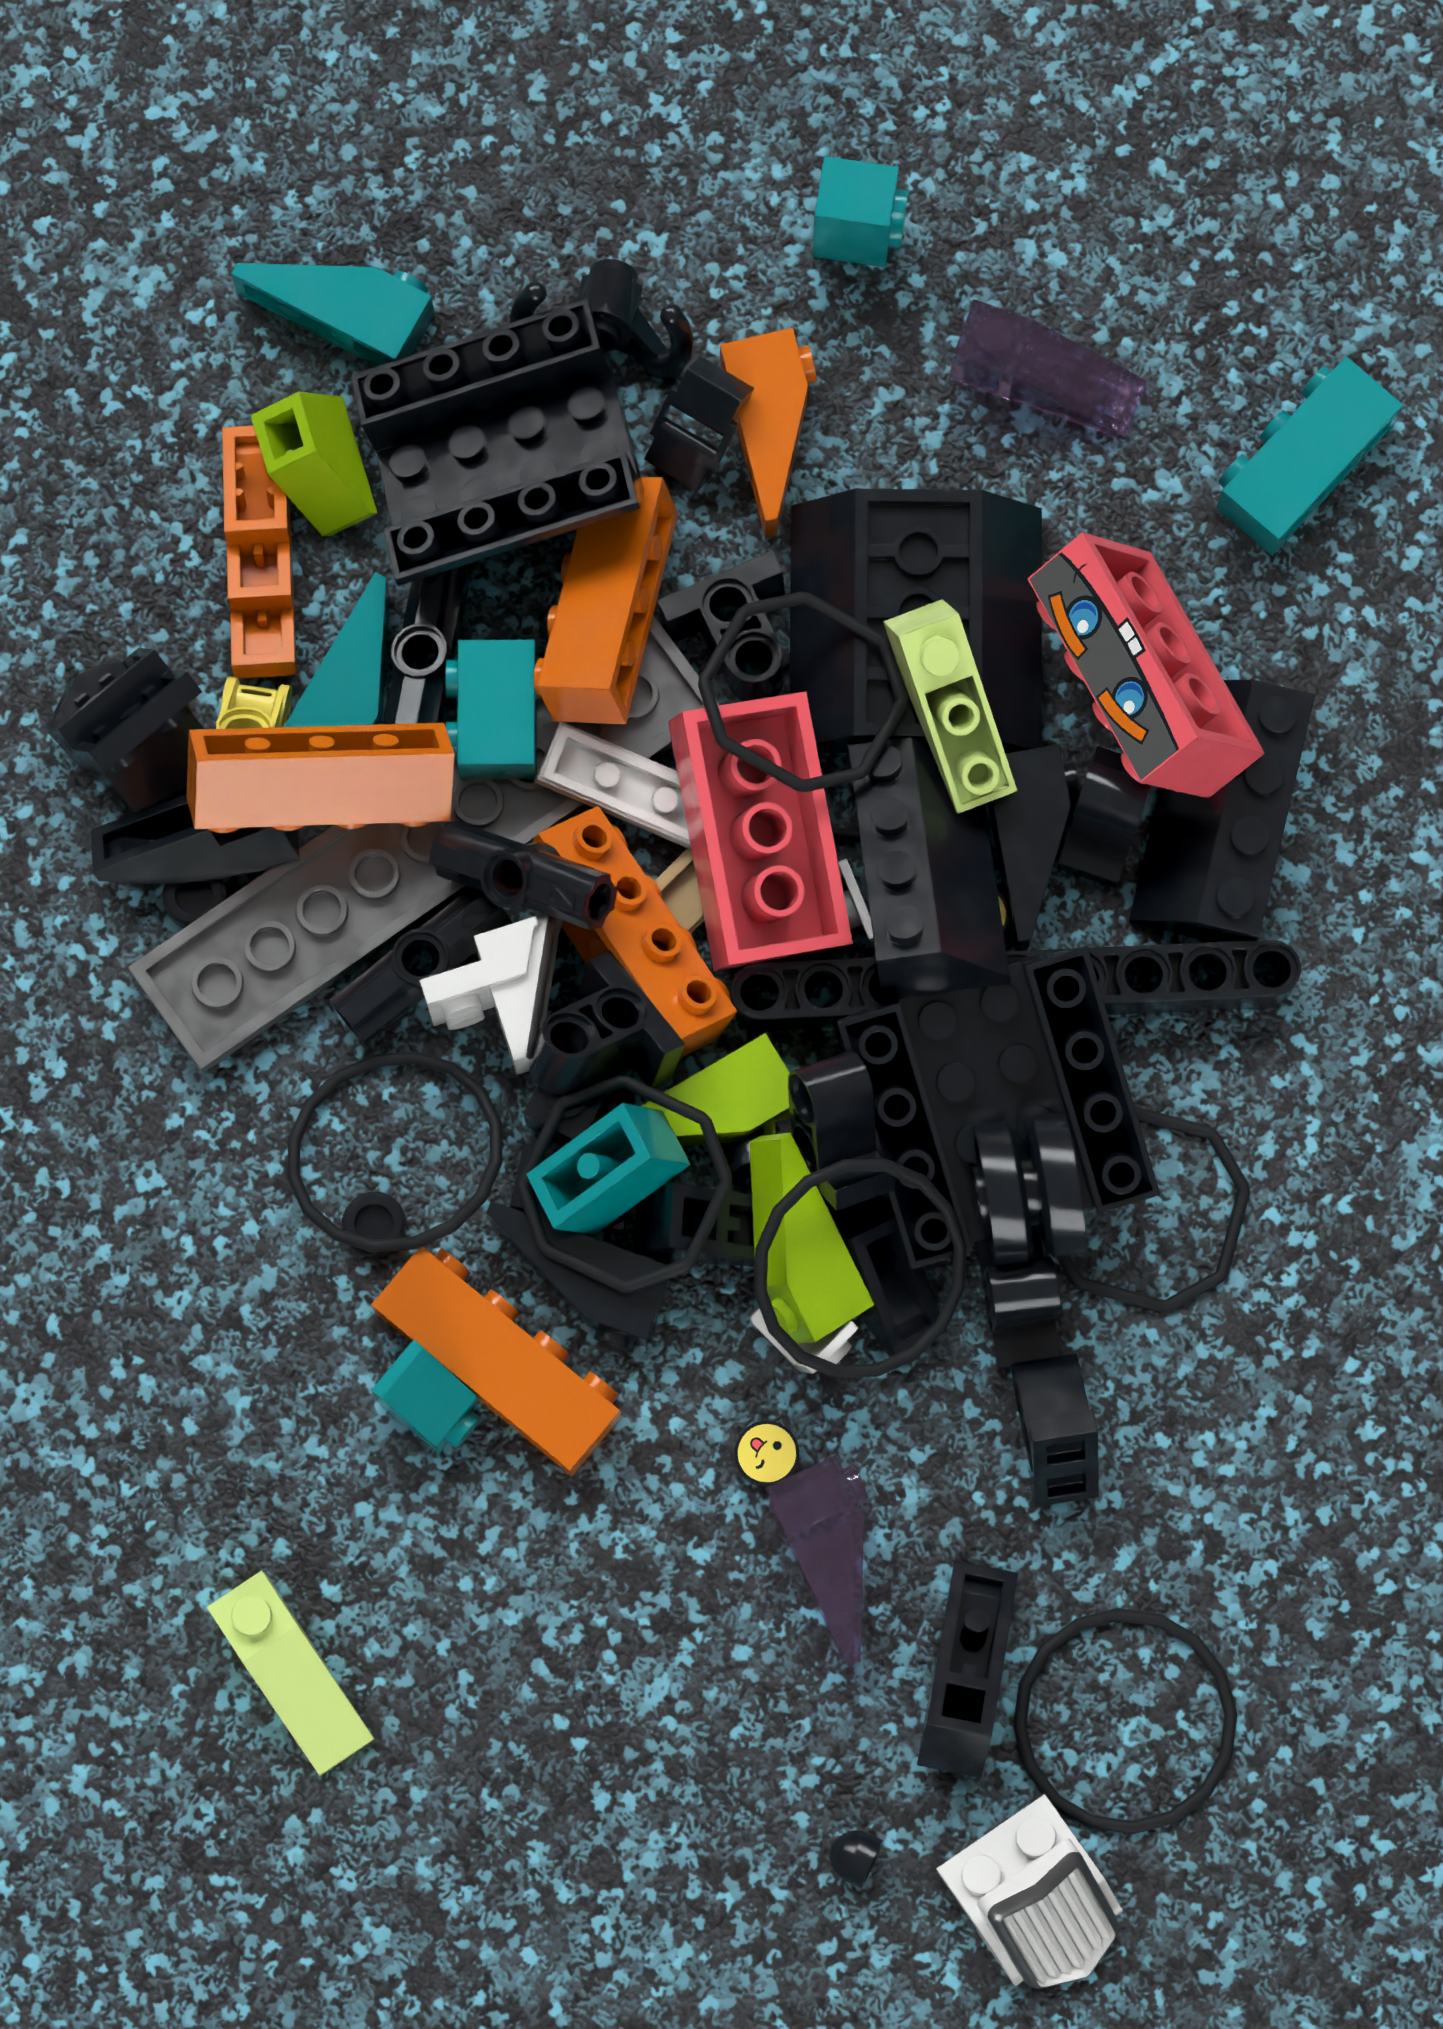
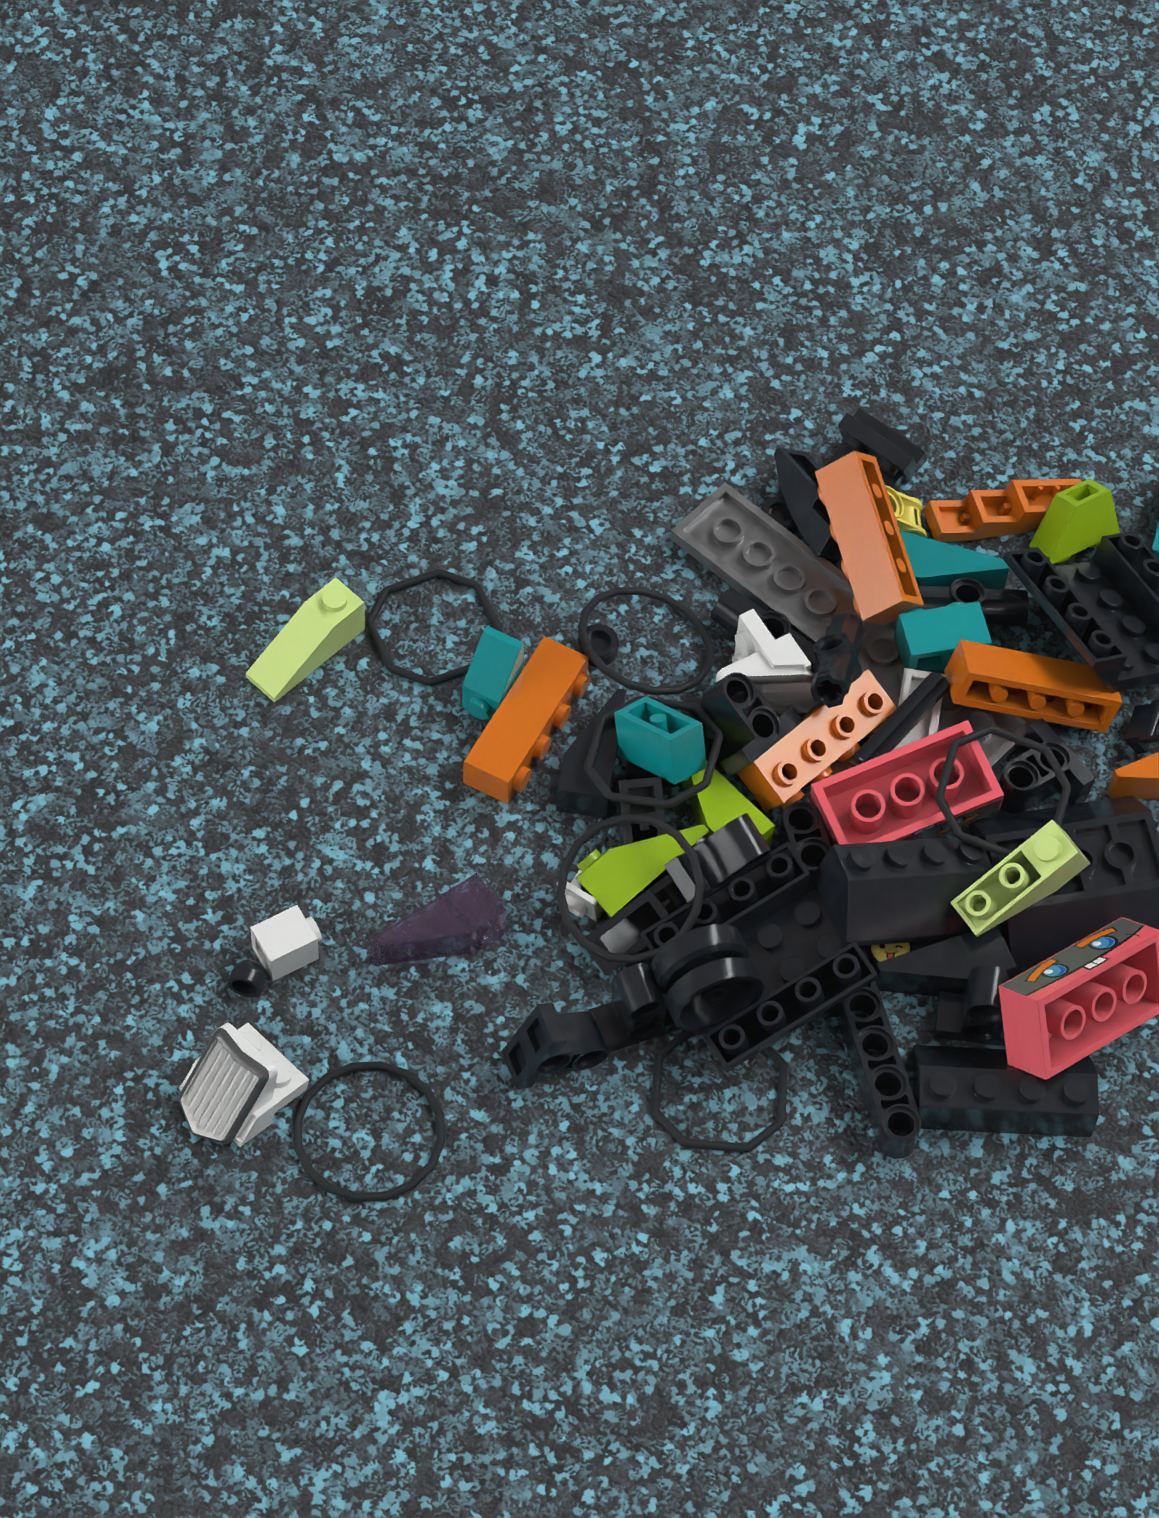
camera: 75 degrees right, 20 degrees down
(306, 1558) = (411, 582): none -> black piece
(631, 805) = (904, 718): none -> black axle
(766, 1453) = (504, 883): light yellow tile -> none
(812, 1788) = (286, 942): none -> white brick
(968, 1669) = (381, 1020): black slope -> none

